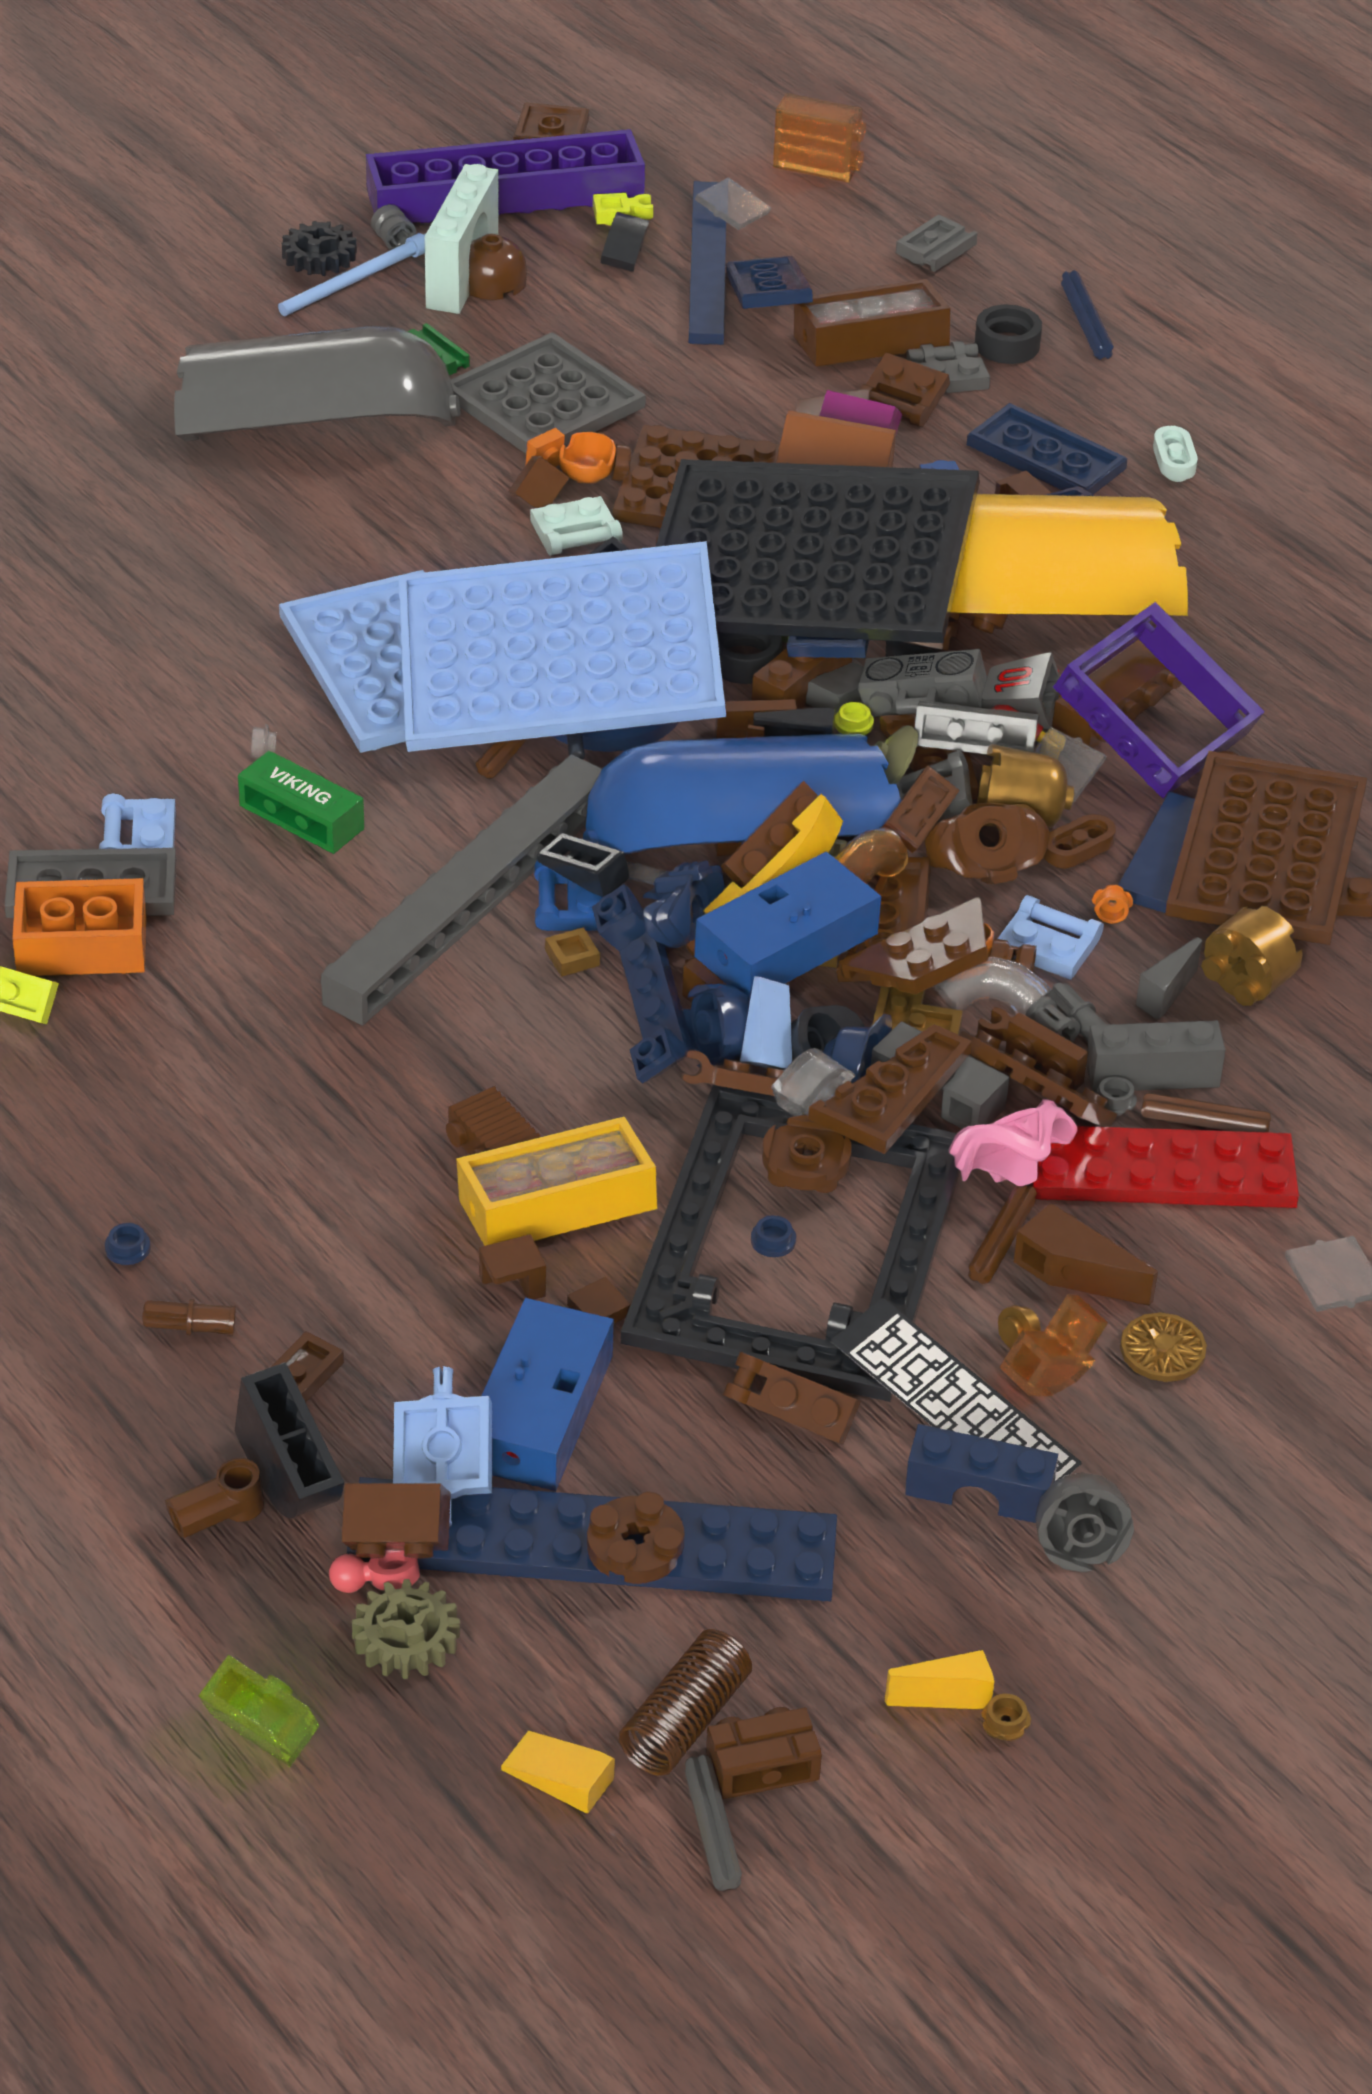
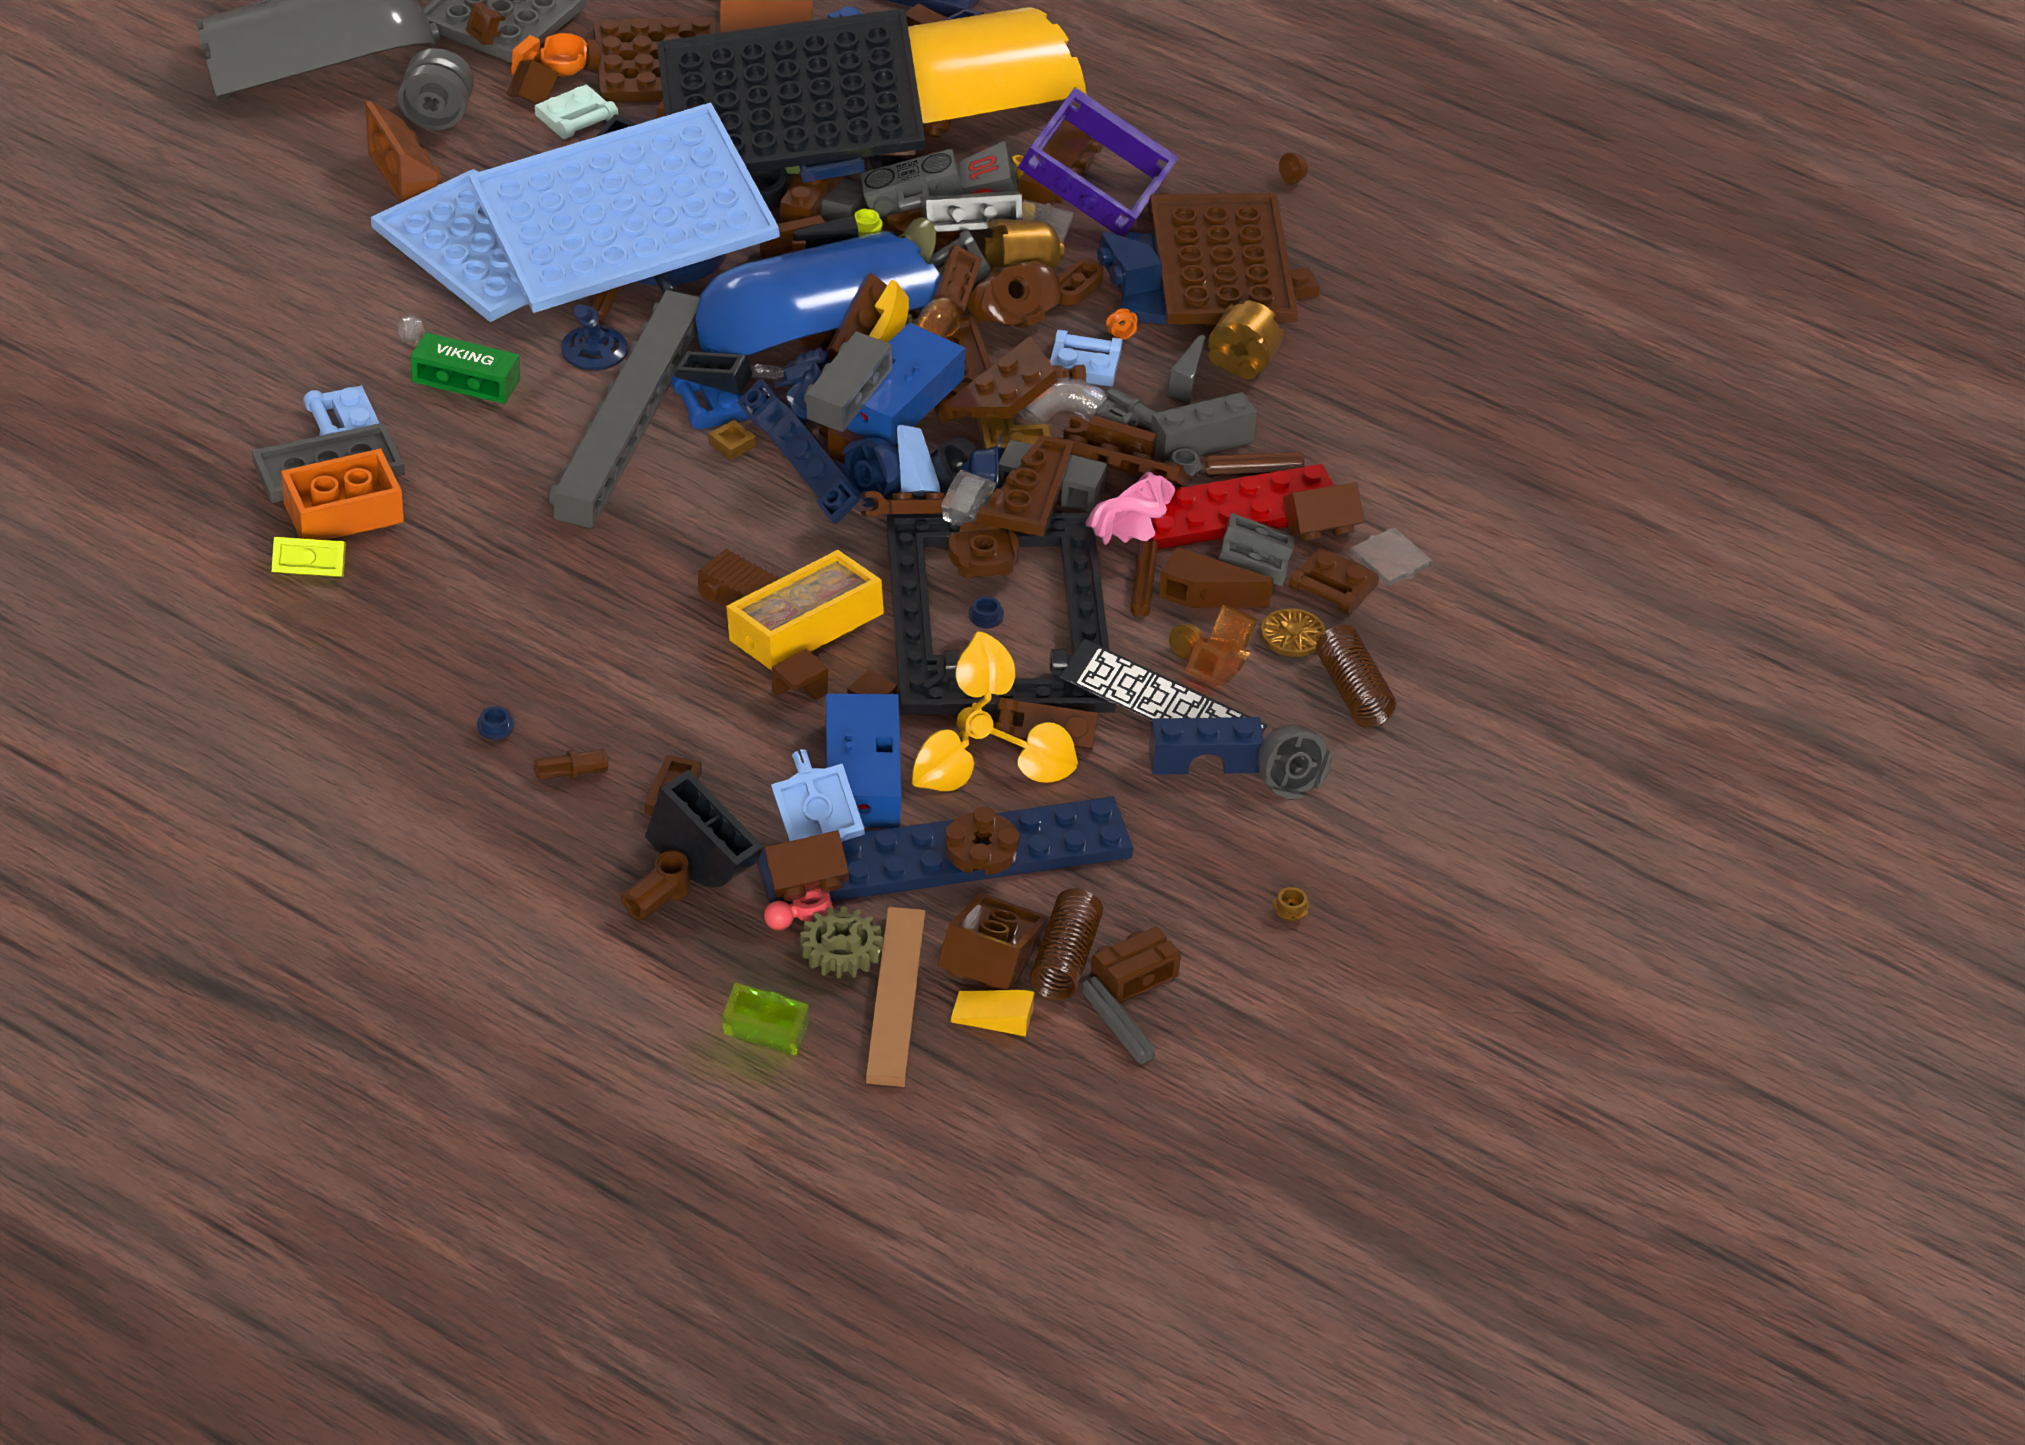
camera: 20 degrees left, 0 degrees up
(346, 535) = (398, 154): none -> dark orange slope
(418, 470) = (435, 89): none -> dark grey wheel
(444, 1720) = (895, 997): none -> medium nougat tile
(466, 800) = (593, 342): none -> dark blue dish
(508, 404) = (484, 23): none -> reddish brown tile
(593, 1673) = (991, 941): none -> reddish brown slope
(711, 909) = (848, 381): none -> dark grey brick
(712, 1315) = (942, 759): none -> yellow plant
(946, 1682) = (1240, 891): yellow slope -> none
(1147, 831) = (1130, 264): none -> dark blue slope
(1158, 1227) = (1256, 548): none -> dark grey slope
(1190, 1395) = (1352, 651): none -> reddish brown piece
(1252, 1282) = (1335, 580): none -> reddish brown plate
(1263, 1195) = (1324, 510): none -> reddish brown brick

